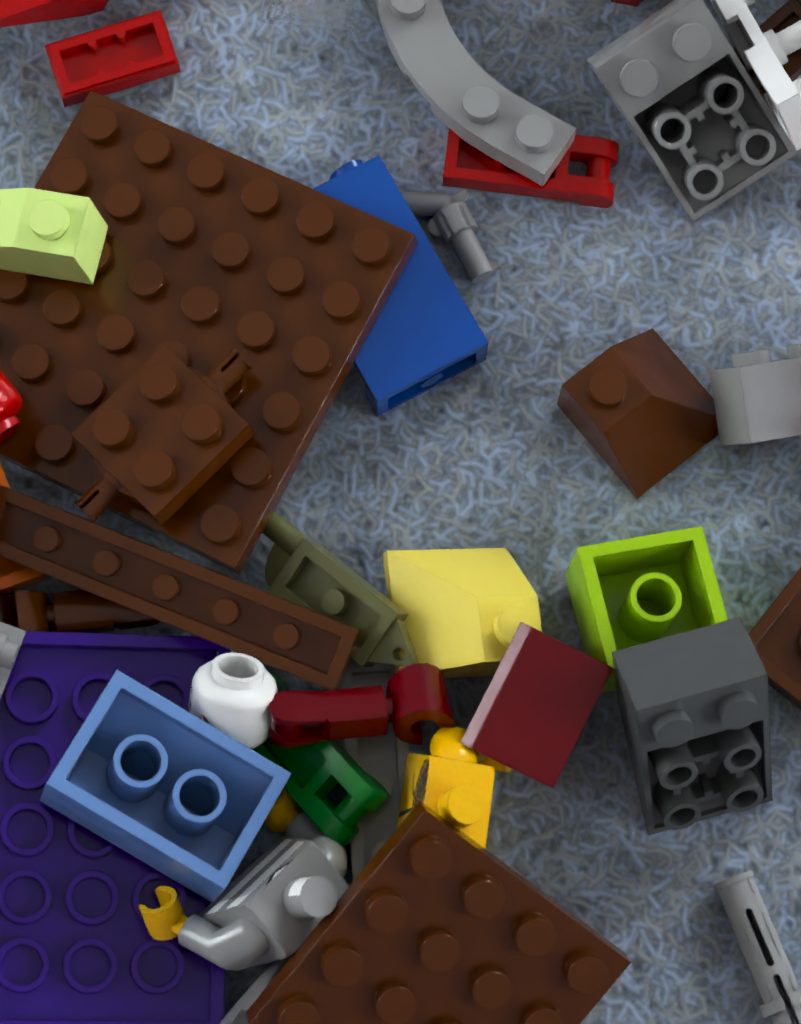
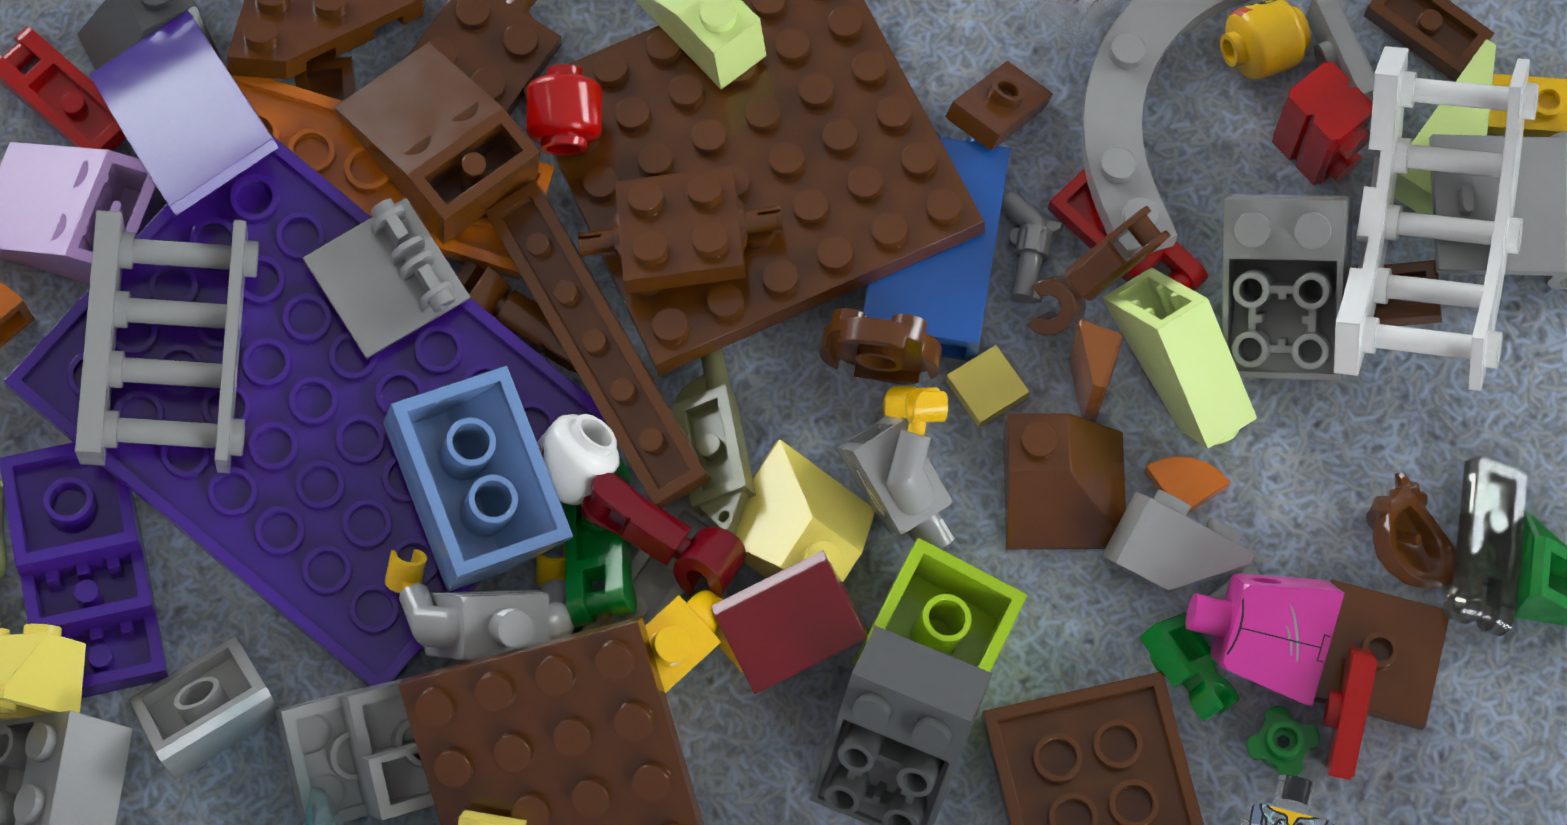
camera: 40 degrees right, 5 degrees down
(337, 126) = (998, 105): none -> reddish brown plate
(409, 408) = (881, 348): none -> reddish brown plate
(509, 498) = (894, 466): none -> light grey torso
(513, 373) = (987, 386): none -> light yellow tile
(536, 210) = (1095, 273): none -> reddish brown piece
(599, 292) = (1092, 365): none -> dark orange slope
(658, 225) = (1183, 355): none -> yellowish green slope
(736, 330) = (1187, 479): none -> orange tile

